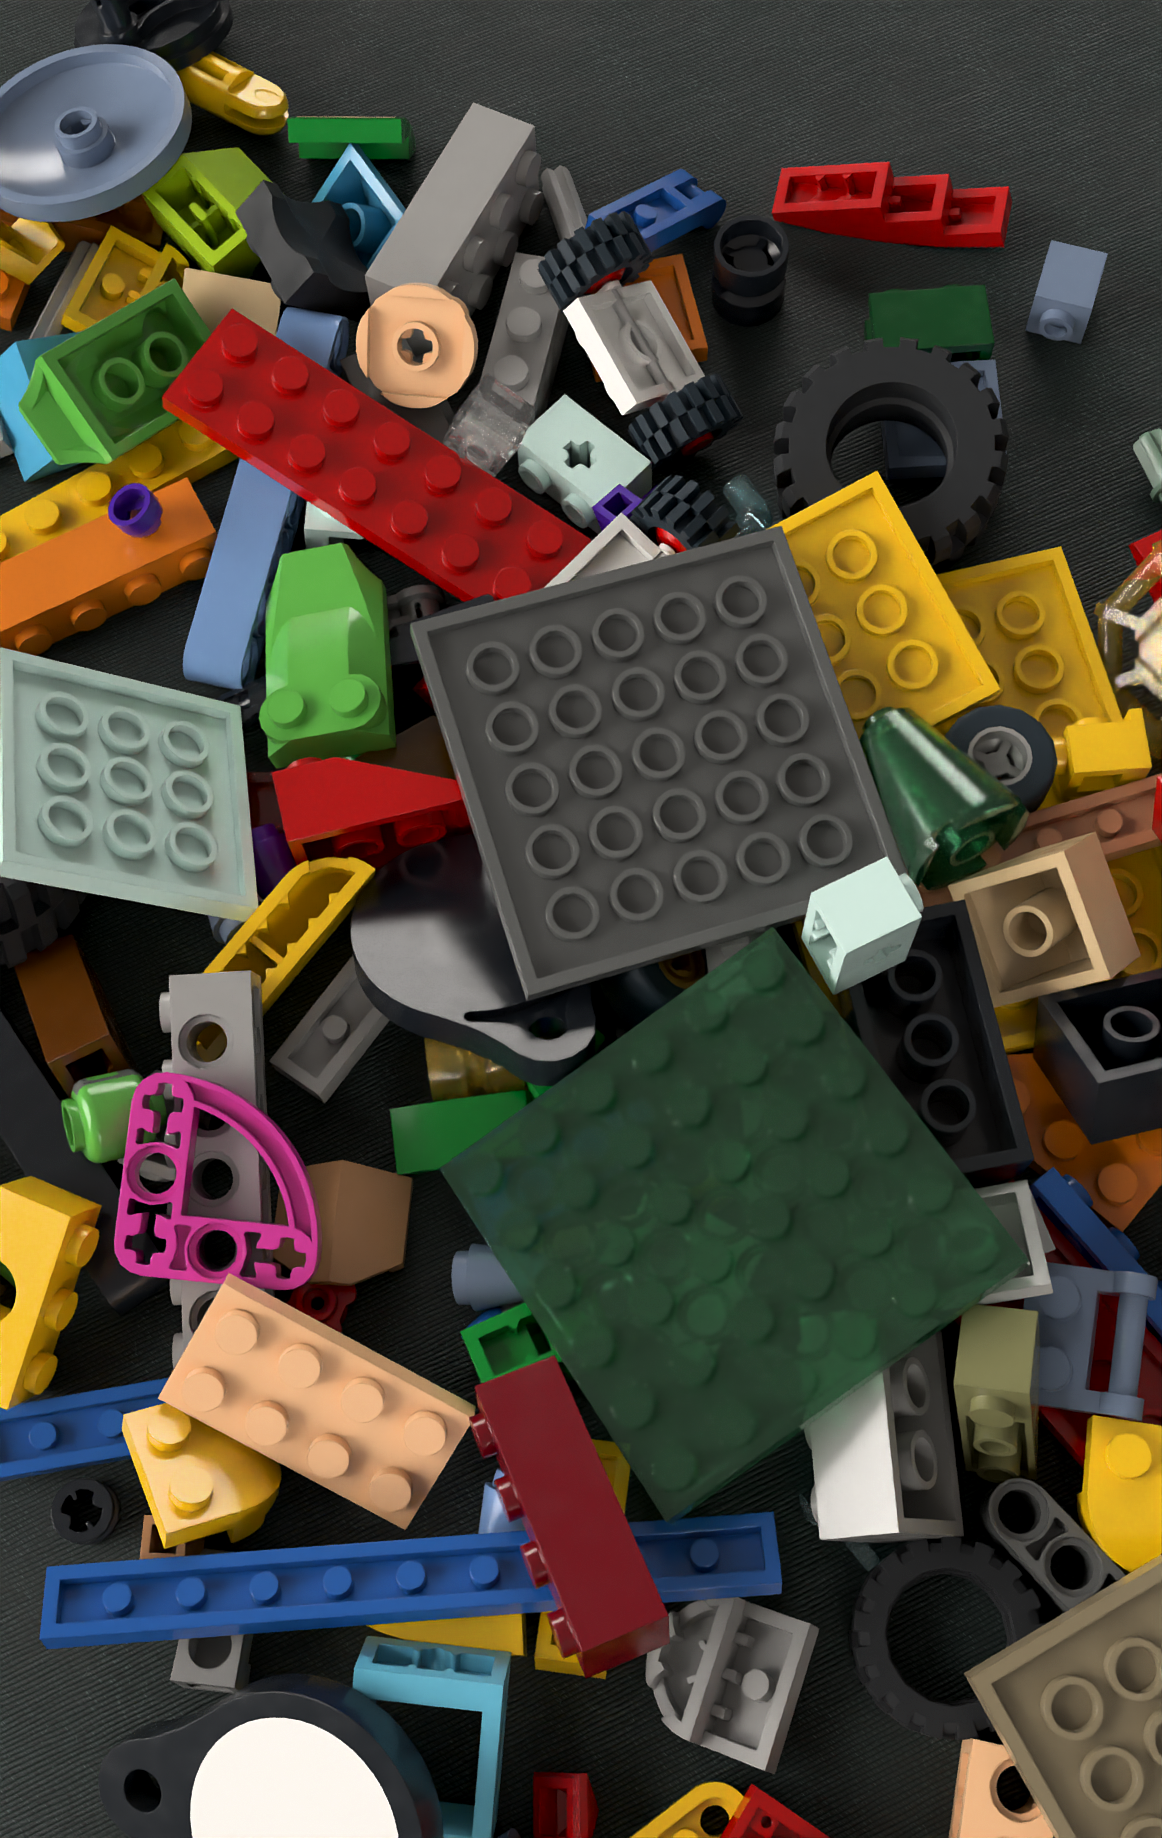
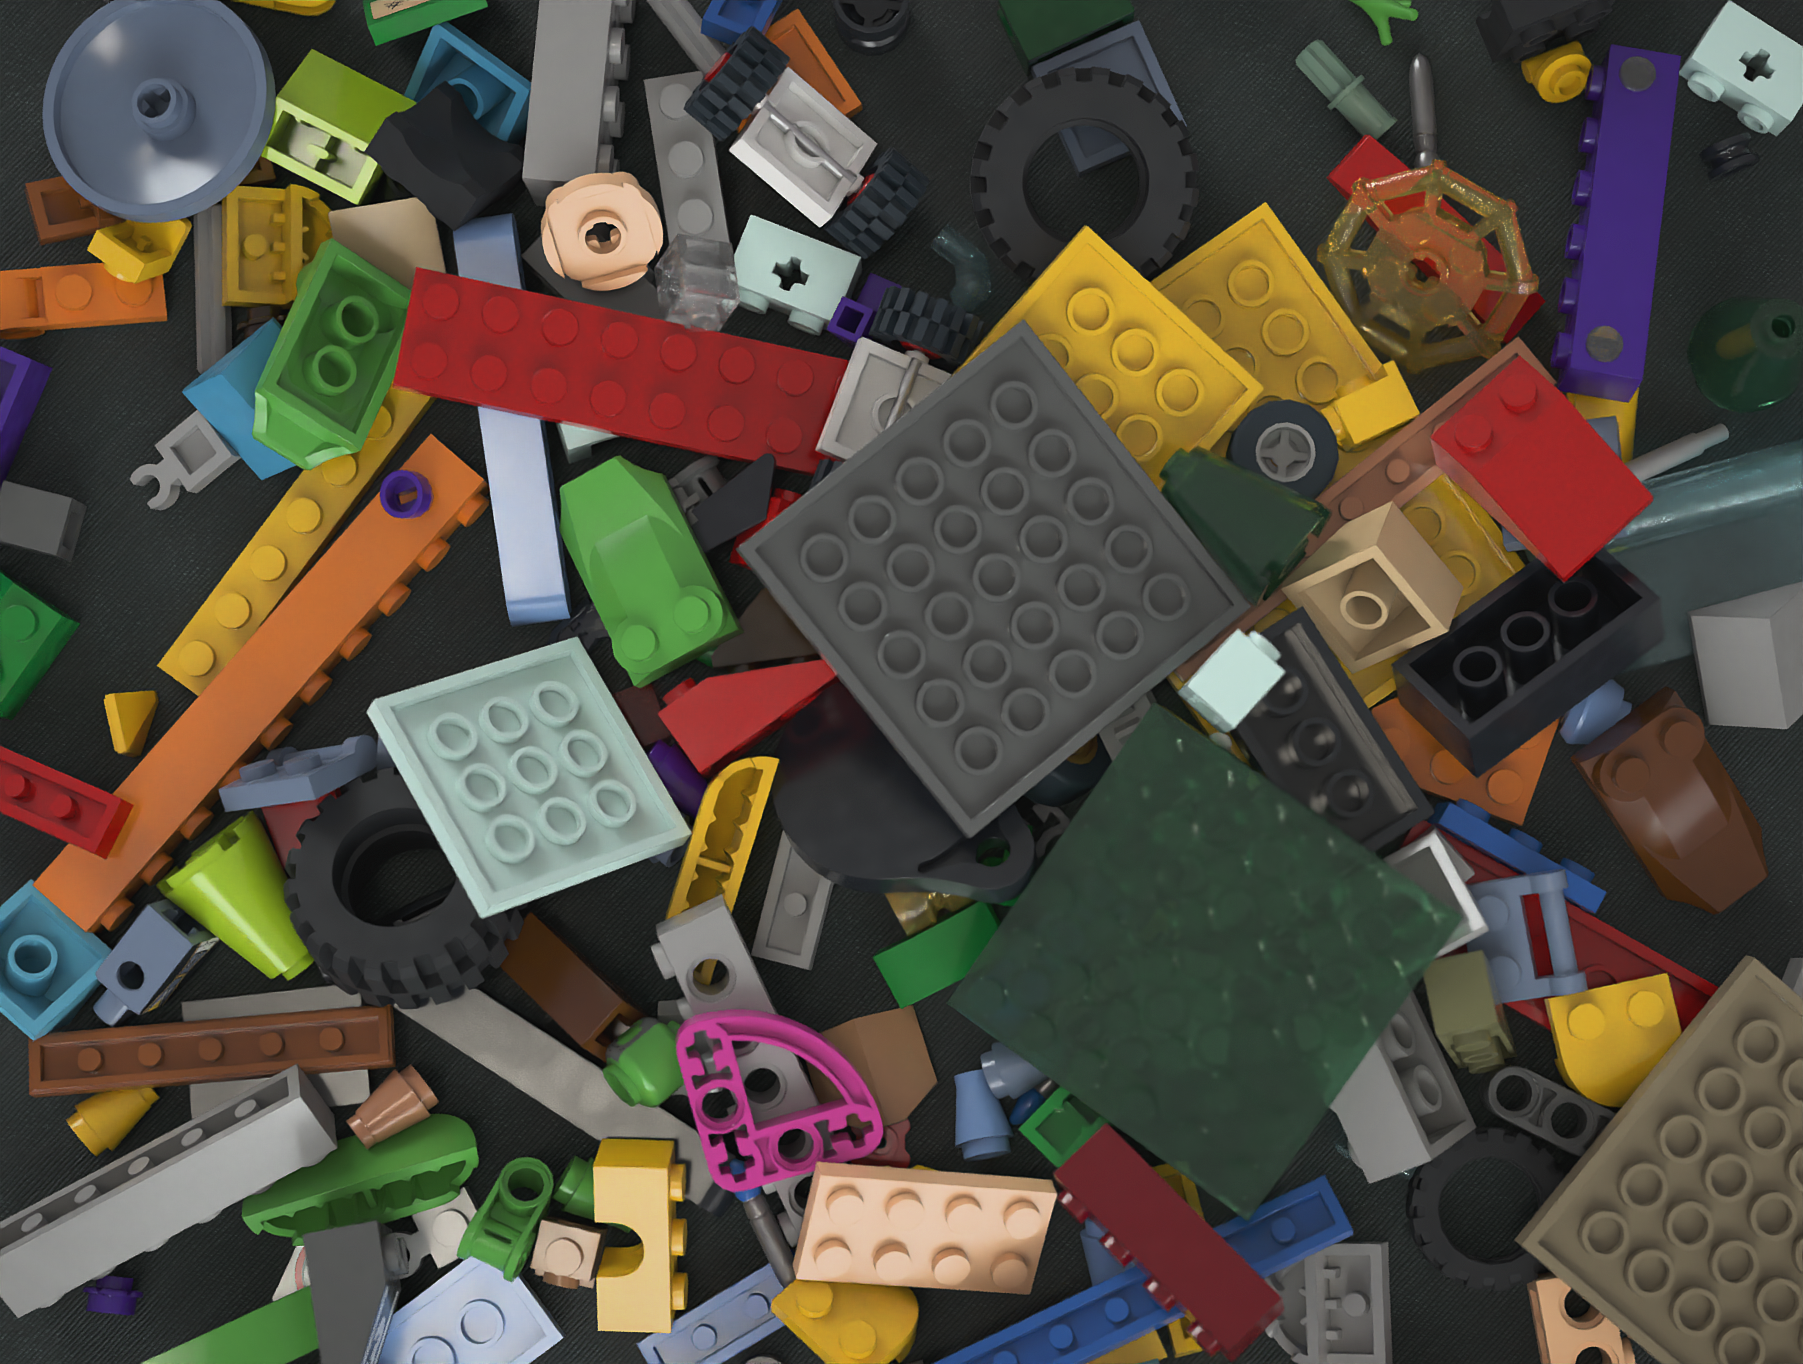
camera: 20 degrees left, 15 degrees up
(156, 1337) = (766, 1230): none -> flat silver piece
(430, 1320) = (980, 1119): none -> medium blue cone

